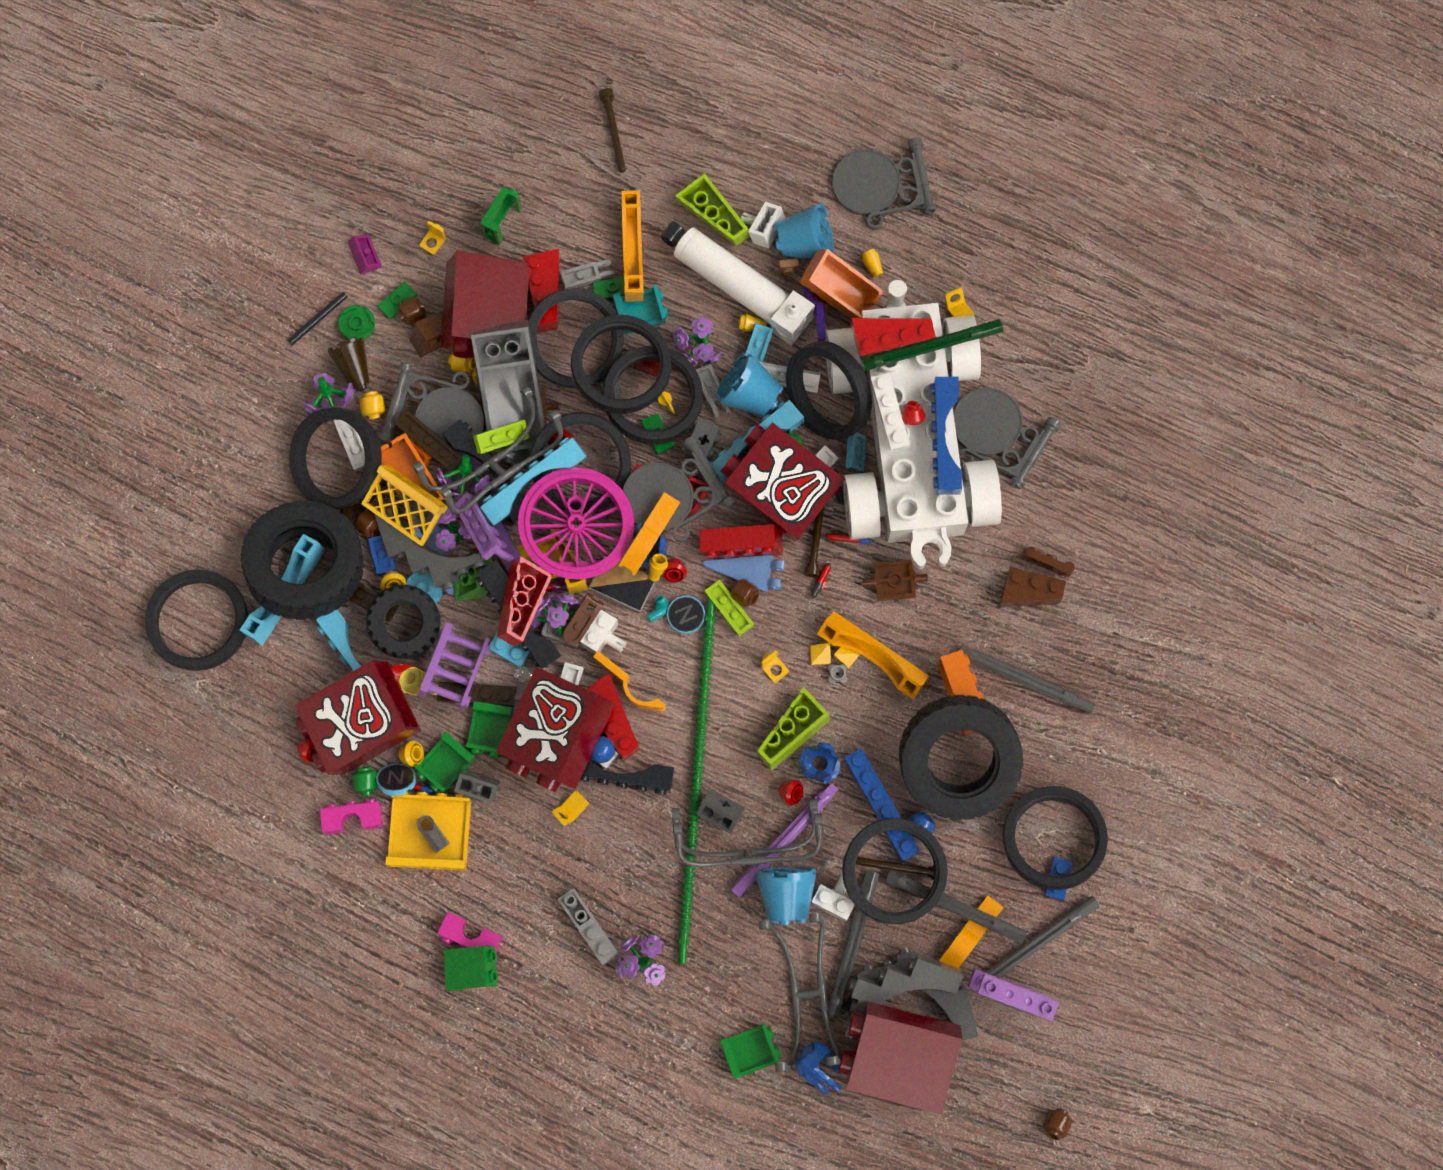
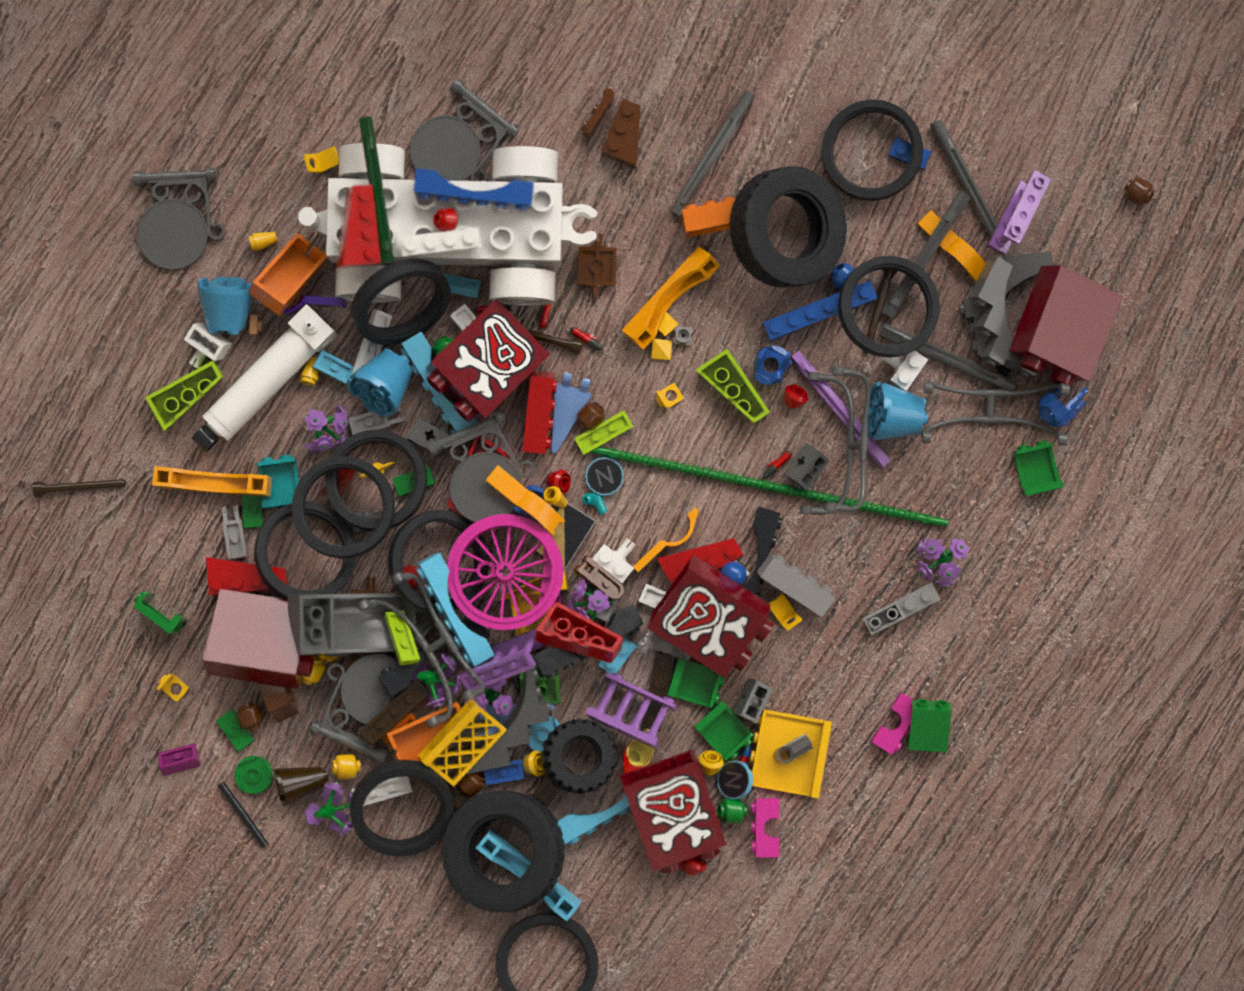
camera: 80 degrees left, 10 degrees up
(599, 814) = (796, 585): none -> light grey brick
(720, 783) = (776, 464): none -> piece

